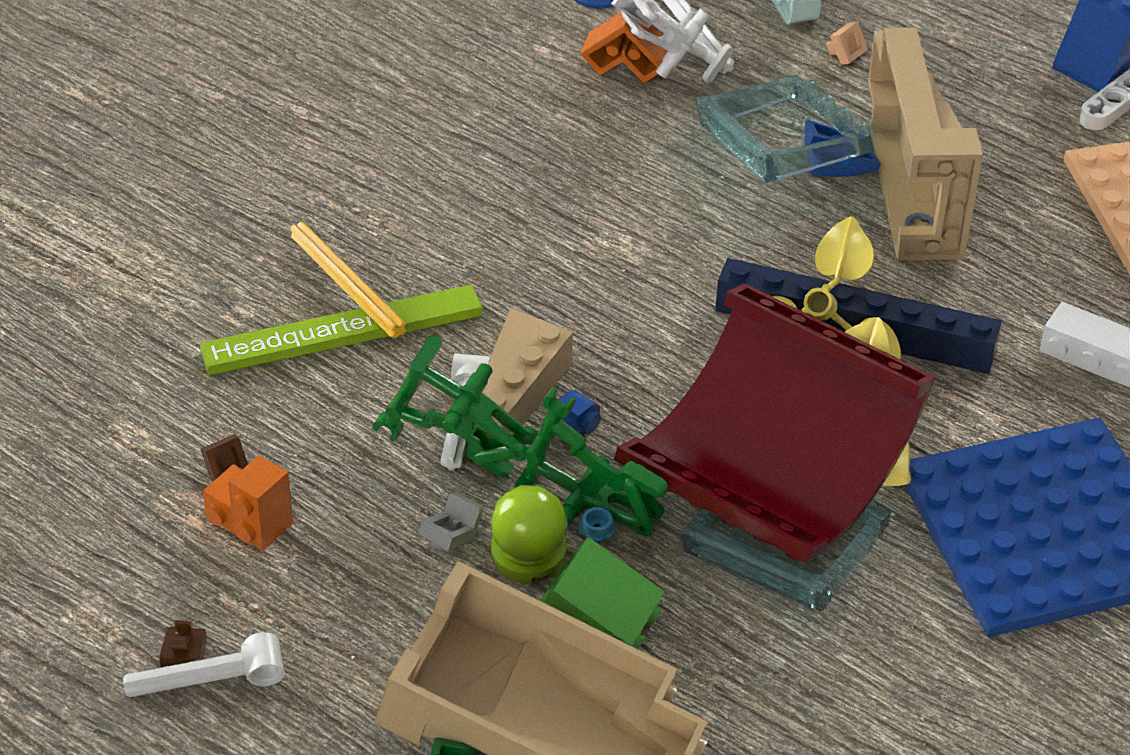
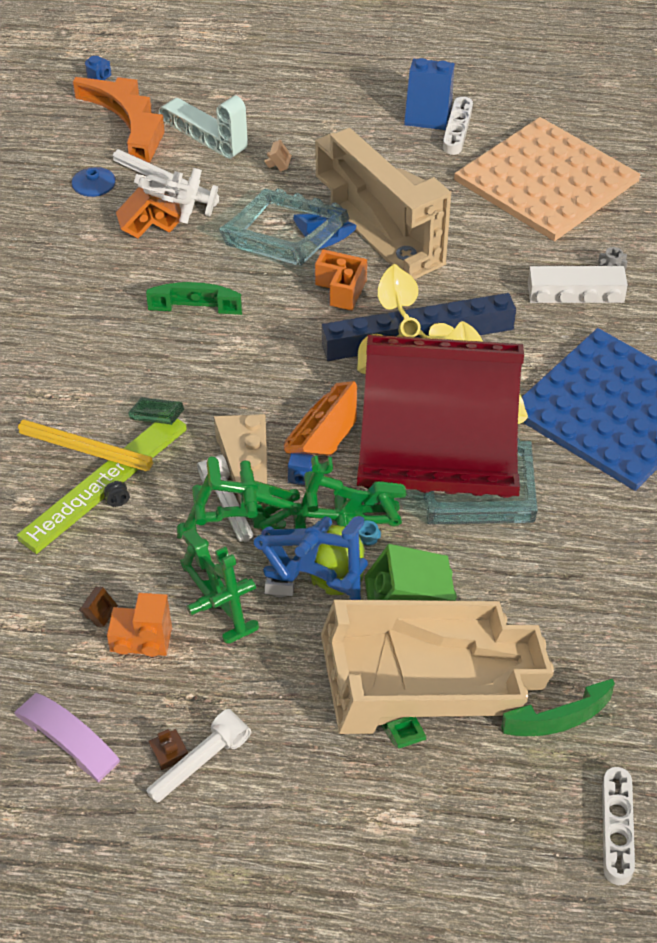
camera: 30 degrees left, 5 degrees up
(89, 582) = (70, 734): none -> lavender slope
(341, 348) = (116, 494): none -> black bush
(366, 502) = (214, 590): none -> green piece
(458, 276) = (156, 410): none -> clear green tile
(515, 486) = (307, 545): none -> blue piece
(607, 162) = (194, 294): none -> green slope
(643, 378) = (325, 422): none -> orange wedge
(802, 216) = (343, 275): none -> orange brick

